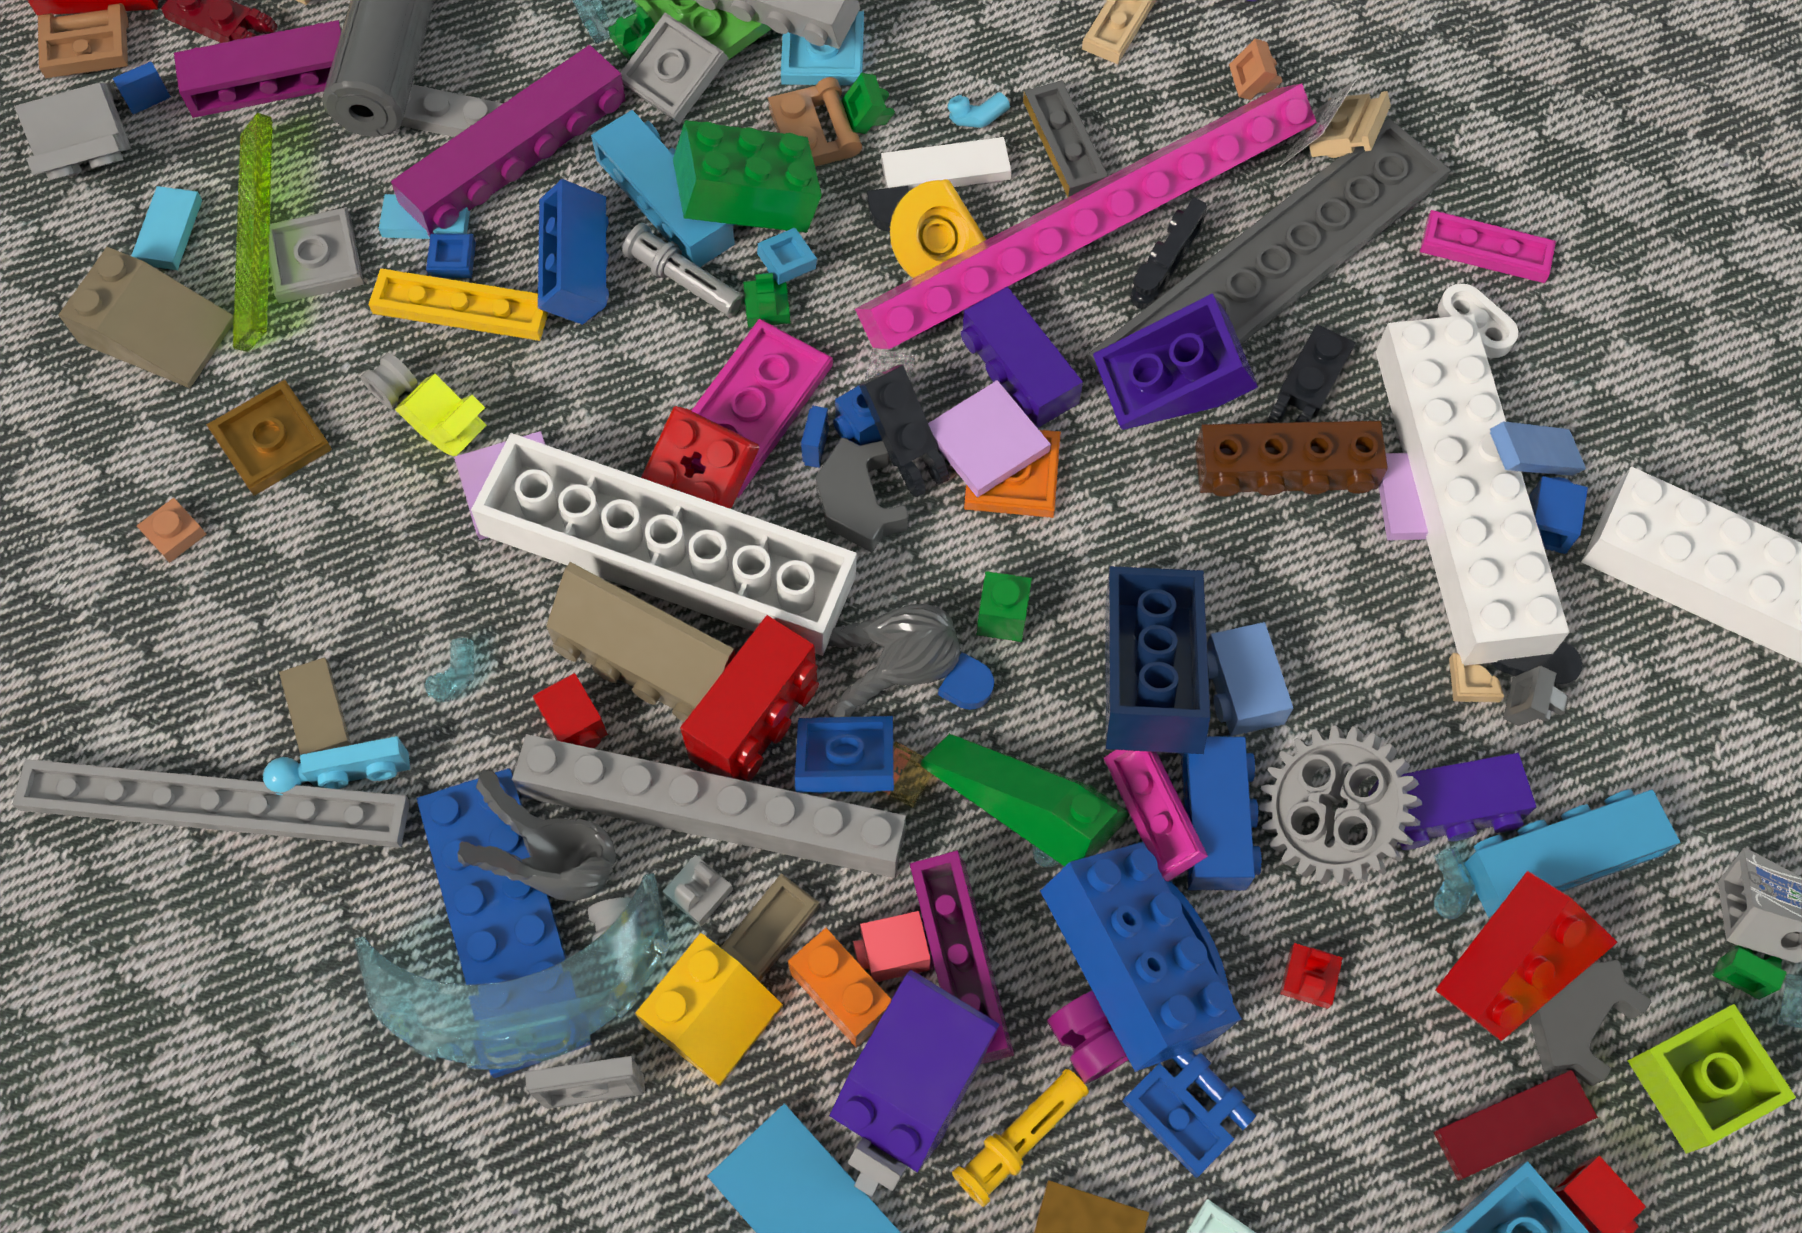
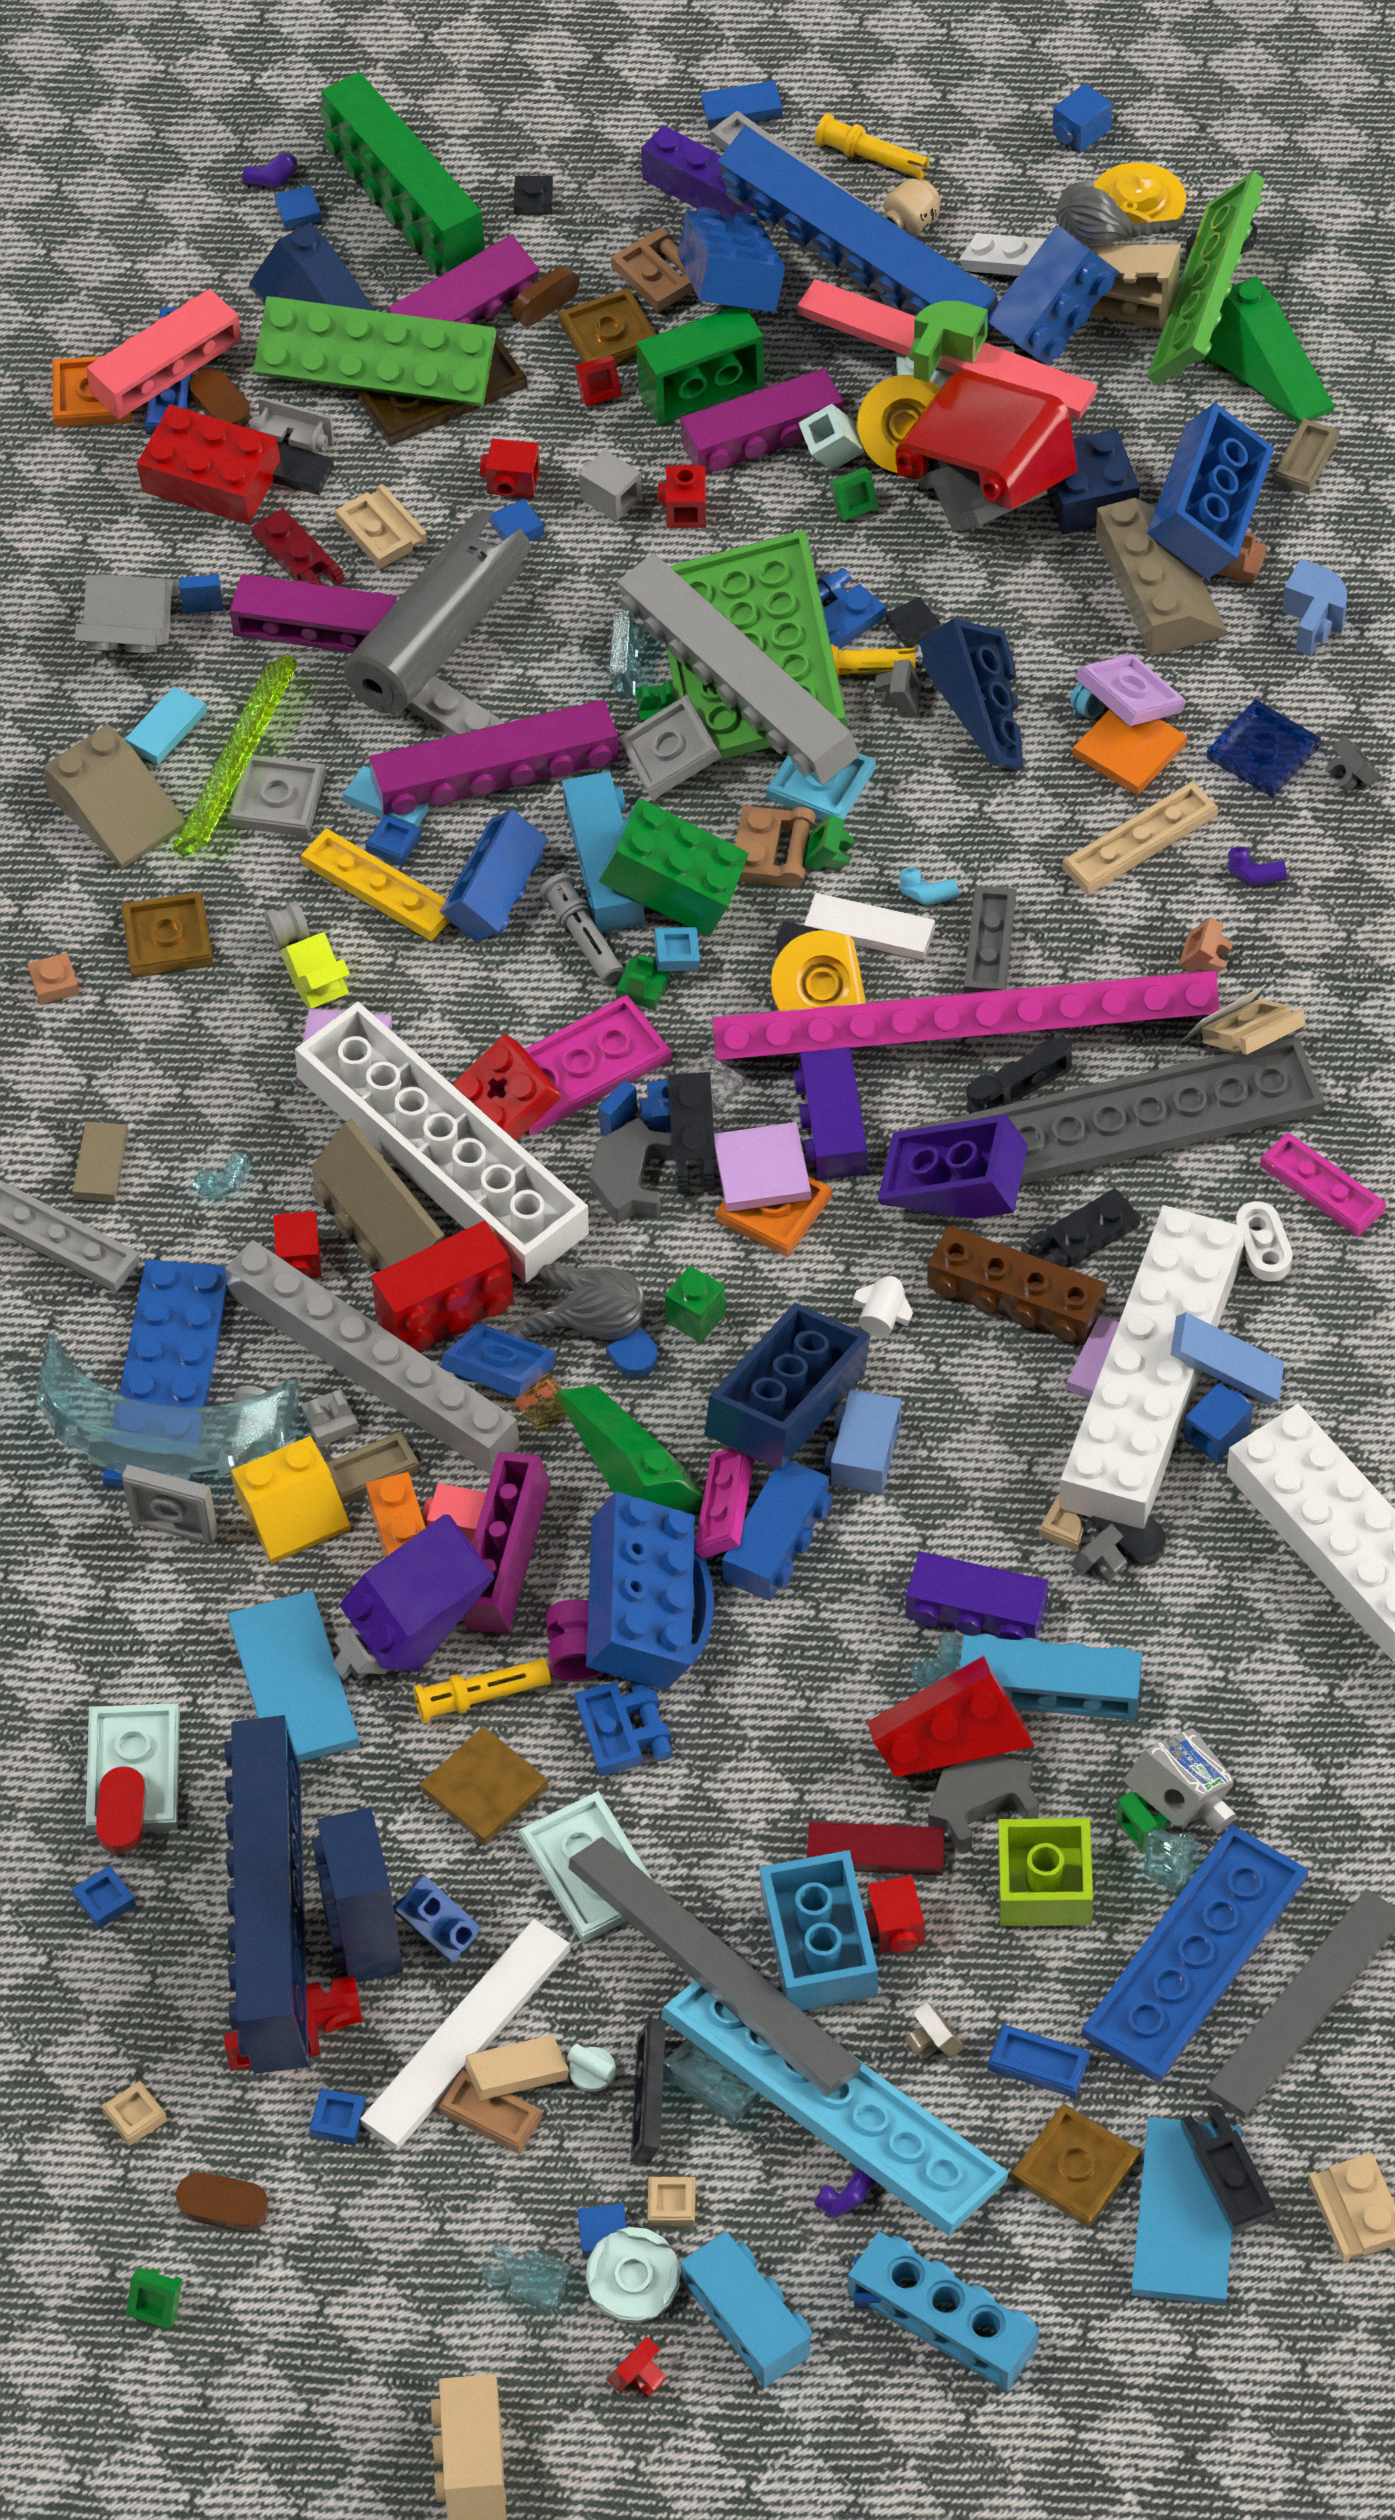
camera: 30 degrees right, 10 degrees down
(83, 41) = (167, 539): medium nougat plate -> none
(337, 766) = (100, 1210): medium azure plate -> none
(566, 855) = (238, 1345): dark grey hair -> none
(1179, 531) = (882, 1306): none -> white piece
(1311, 975) = (781, 1679): red tile -> none
(1383, 811) = (873, 1557): light grey gear -> none

